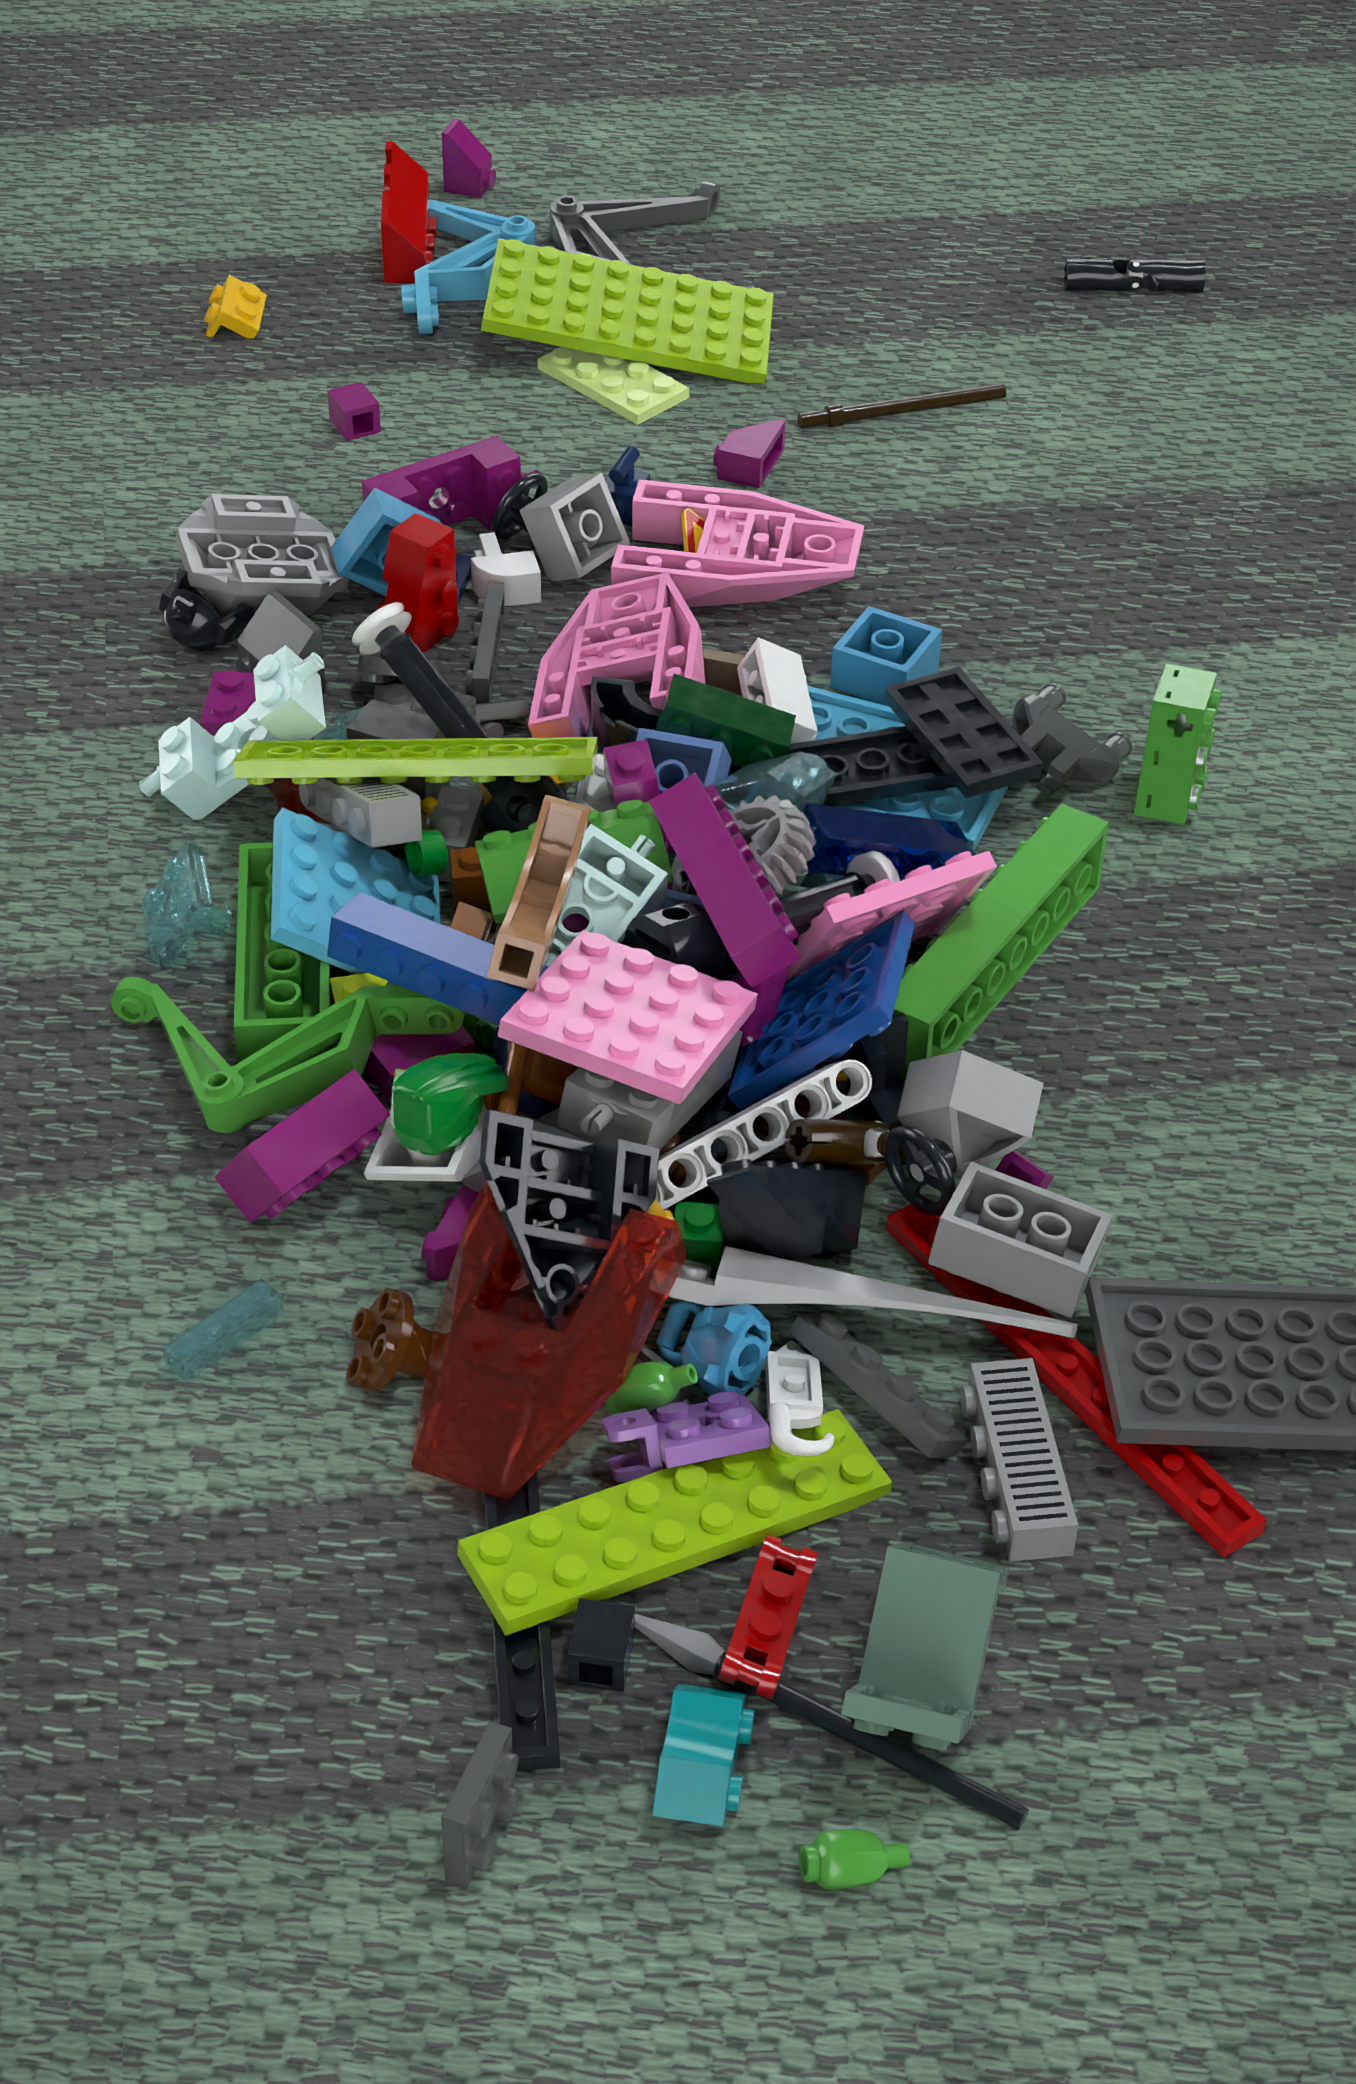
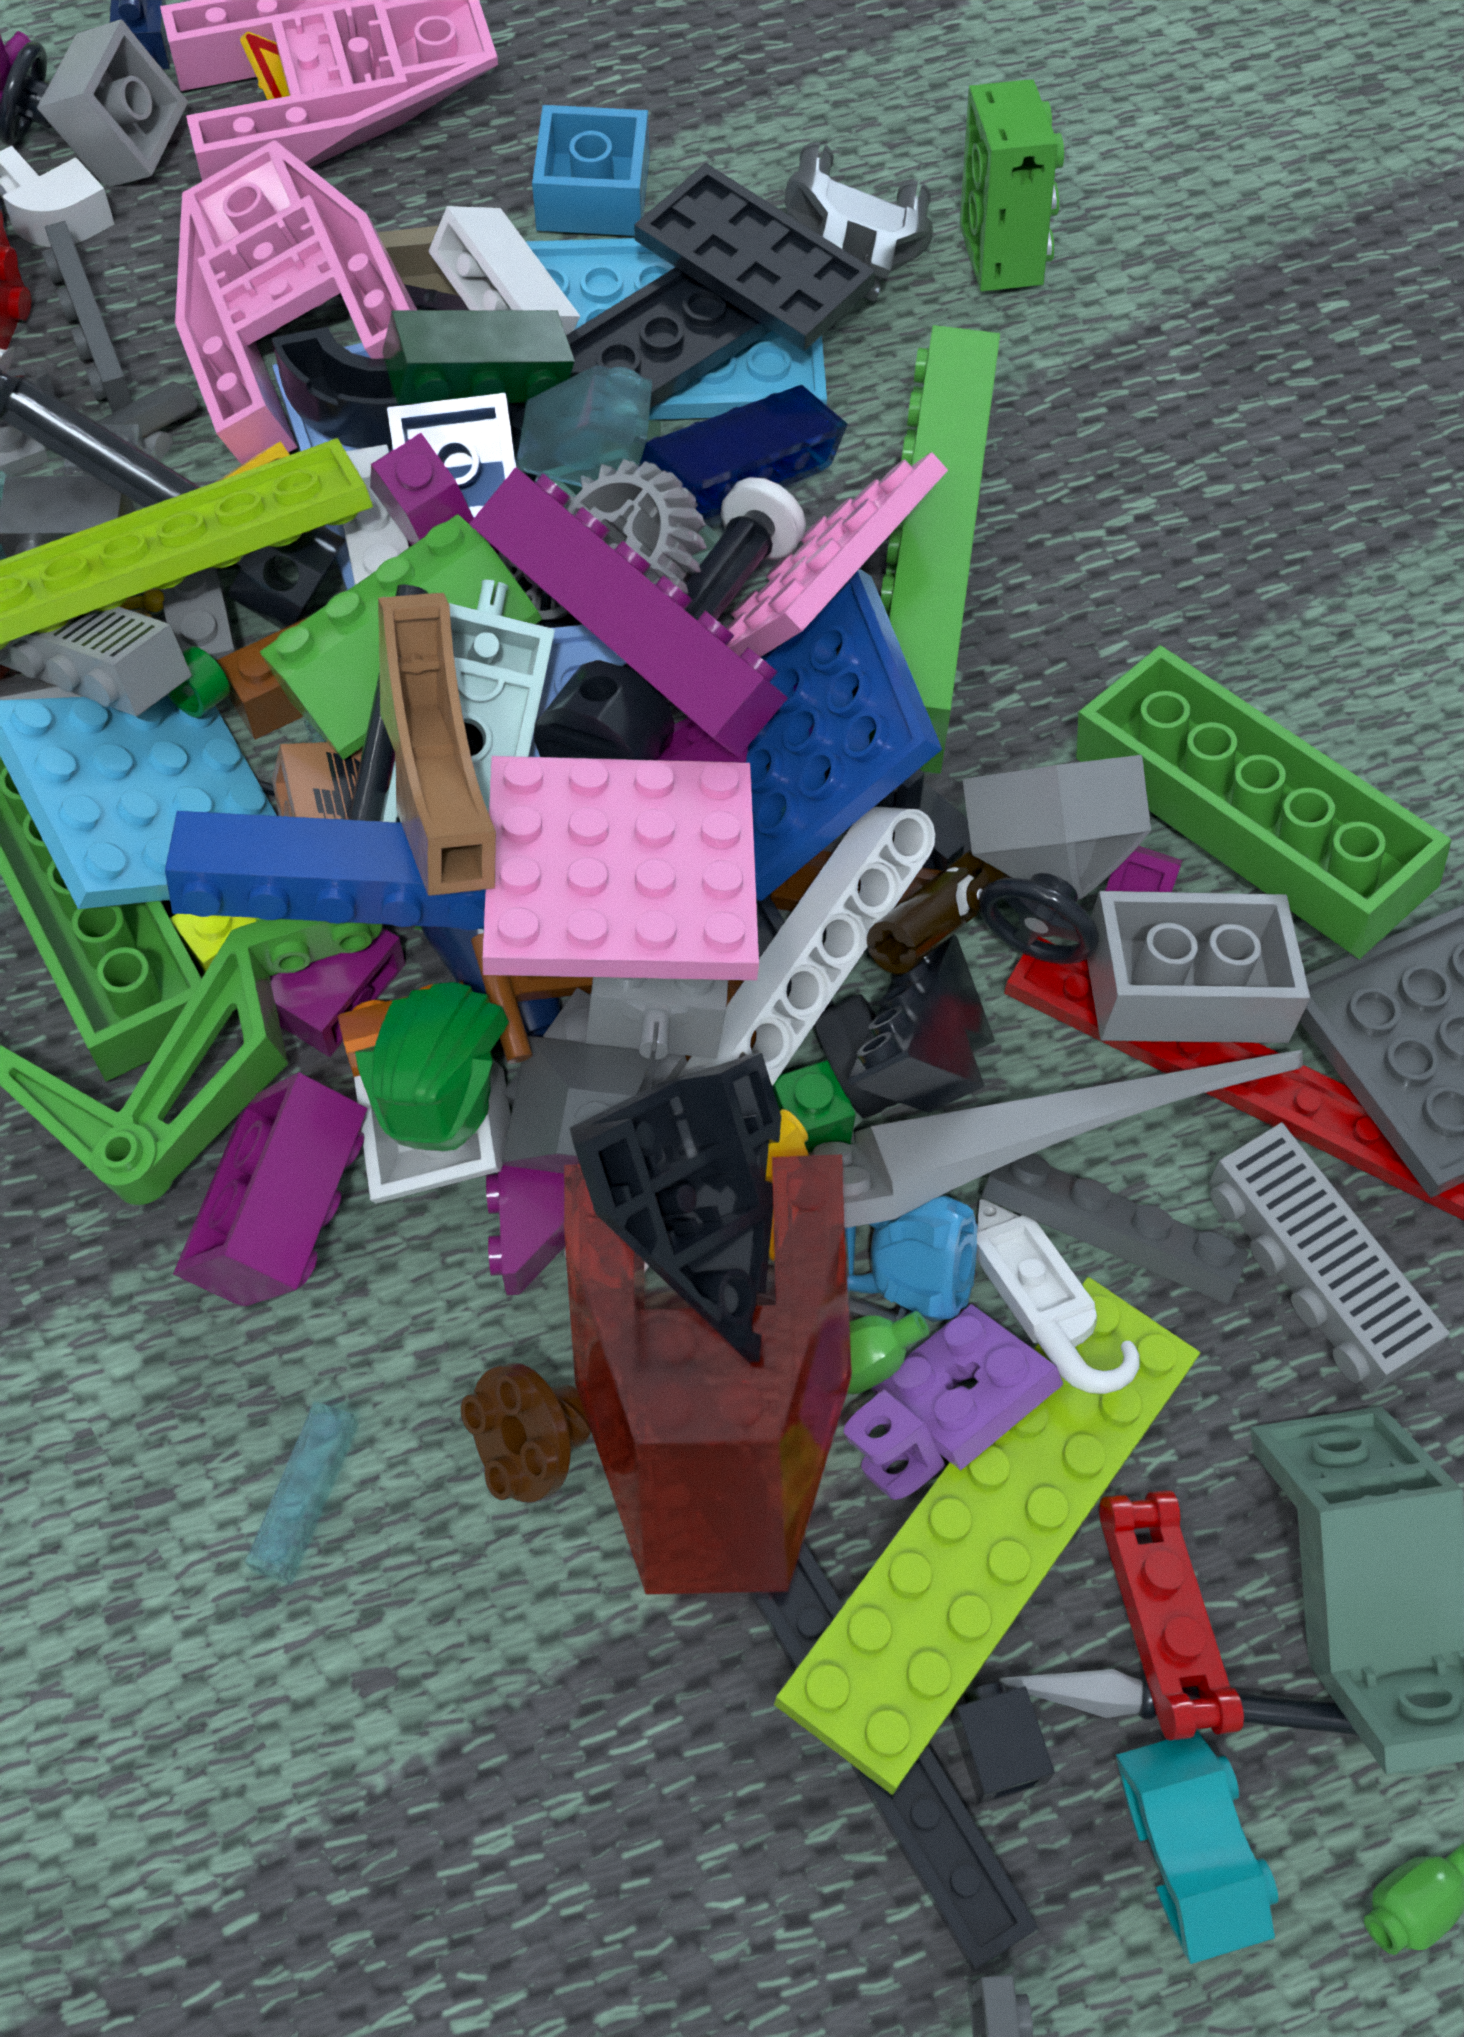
camera: 25 degrees left, 20 degrees up
(1140, 1165) = (1266, 801): none -> bright green brick

